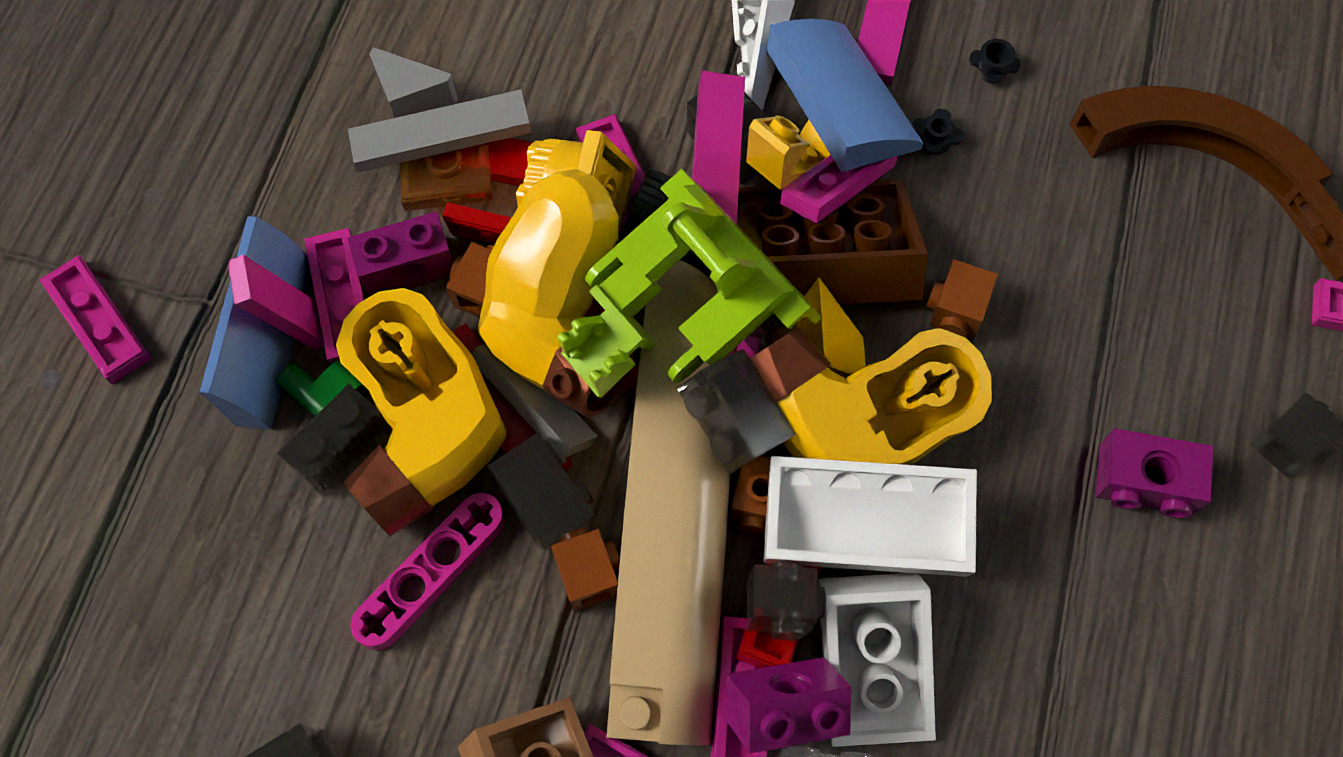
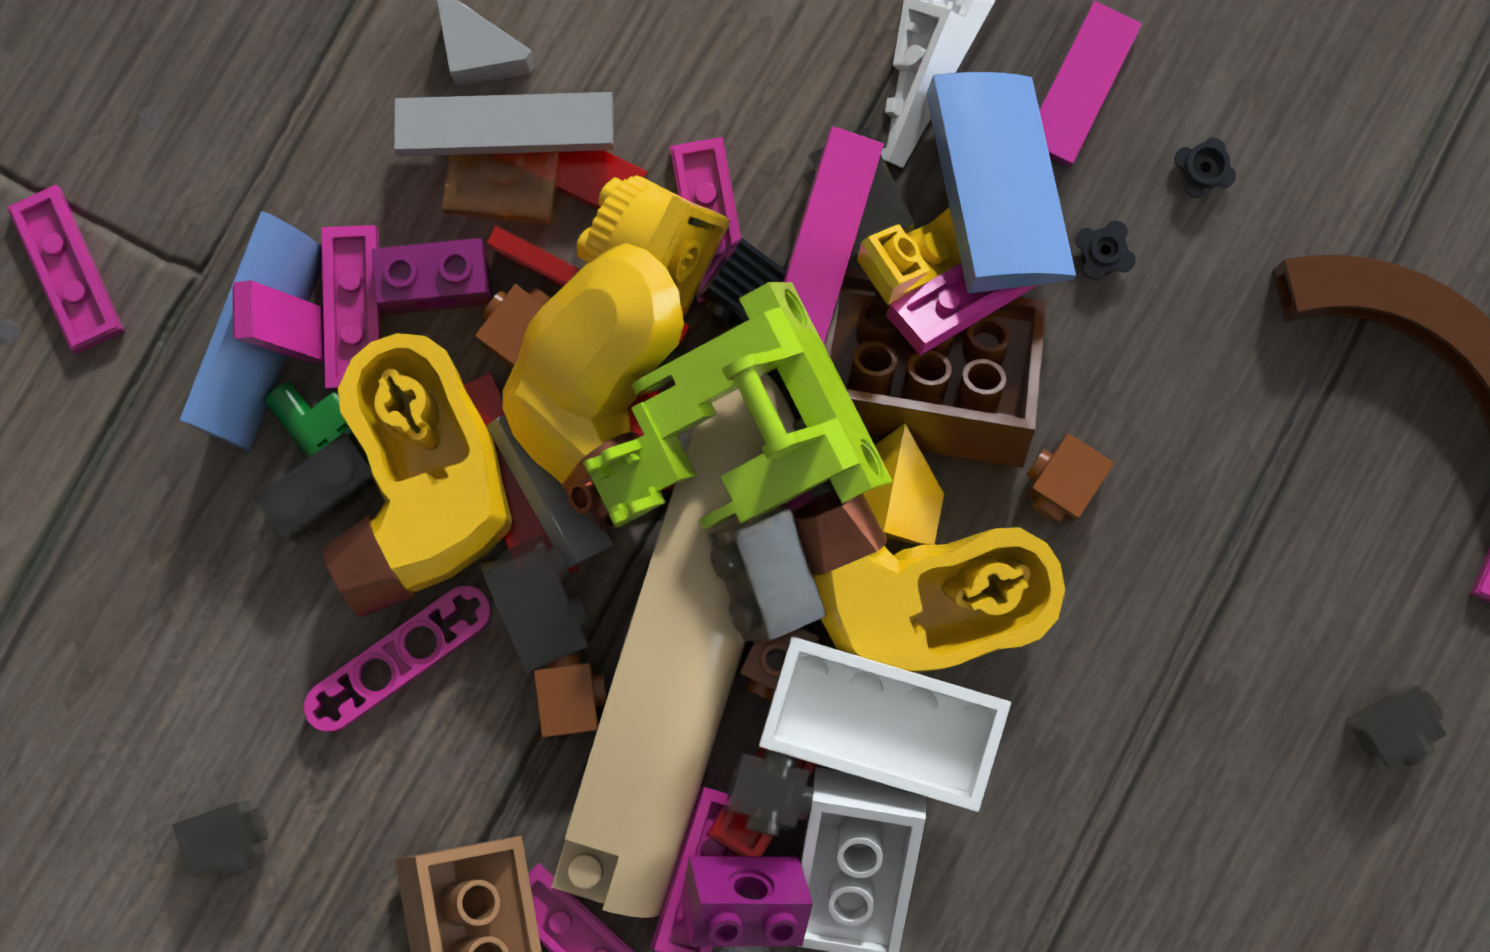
camera: 10 degrees right, 15 degrees up
(1181, 465) = (1253, 734): magenta brick -> none

